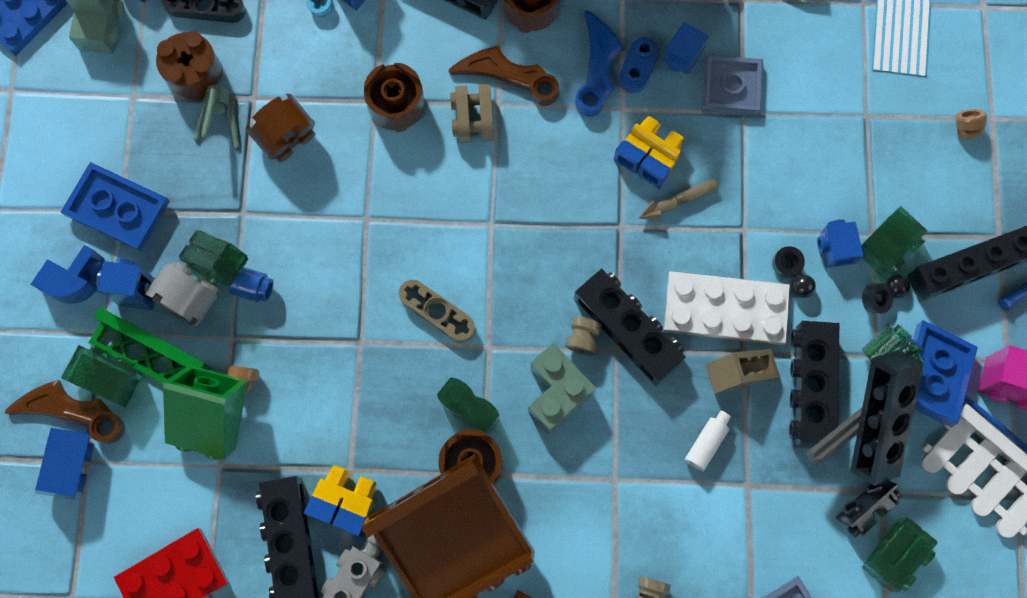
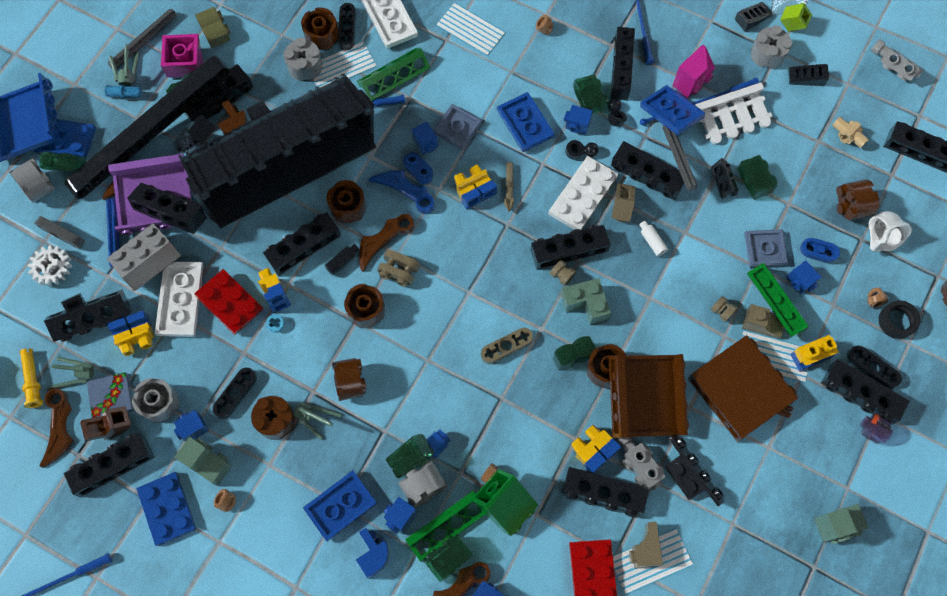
camera: 65 degrees left, 5 degrees down
(58, 64) = (224, 500): none -> medium nougat tile
(449, 36) = (341, 259): none -> black cylinder
(793, 172) = (525, 122): none -> blue plate
(886, 417) = (687, 142): black brick -> none
(893, 339) = (653, 123): clear green brick -> none

